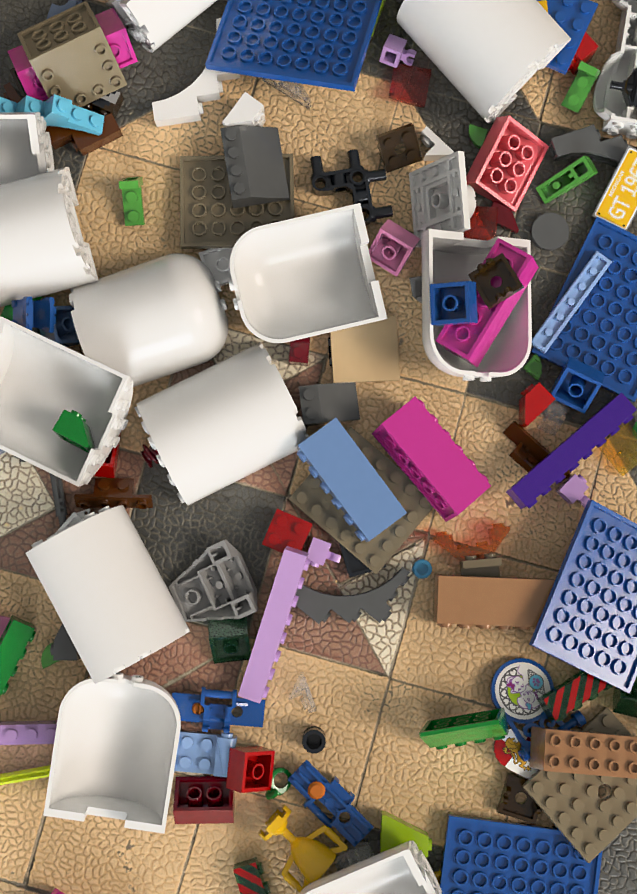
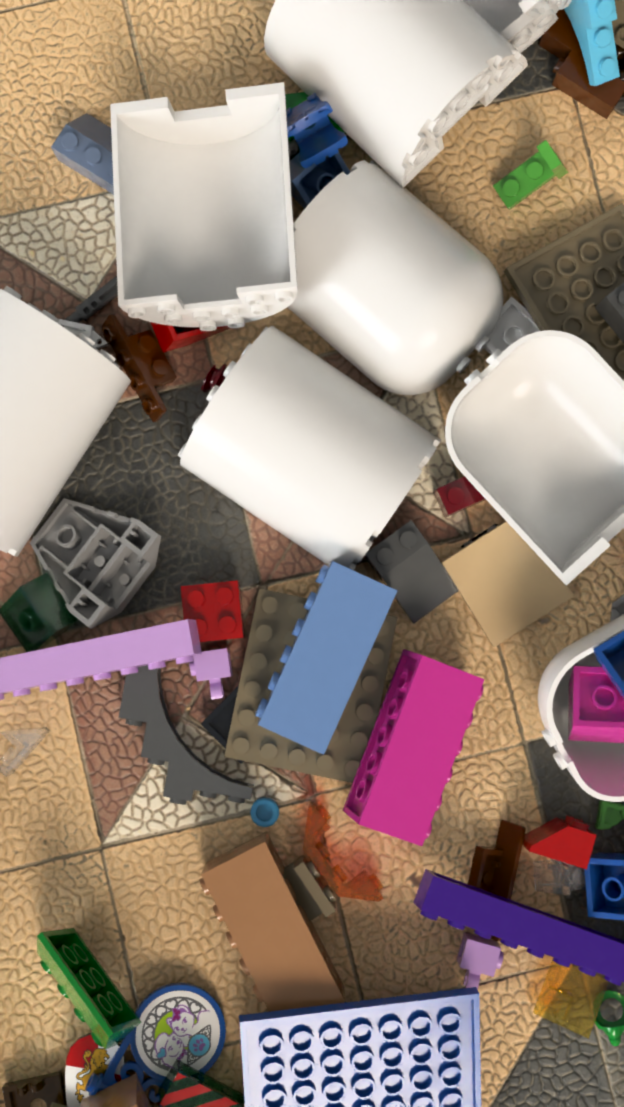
camera: 65 degrees right, 0 degrees up
(74, 430) = (192, 263): green slope -> none

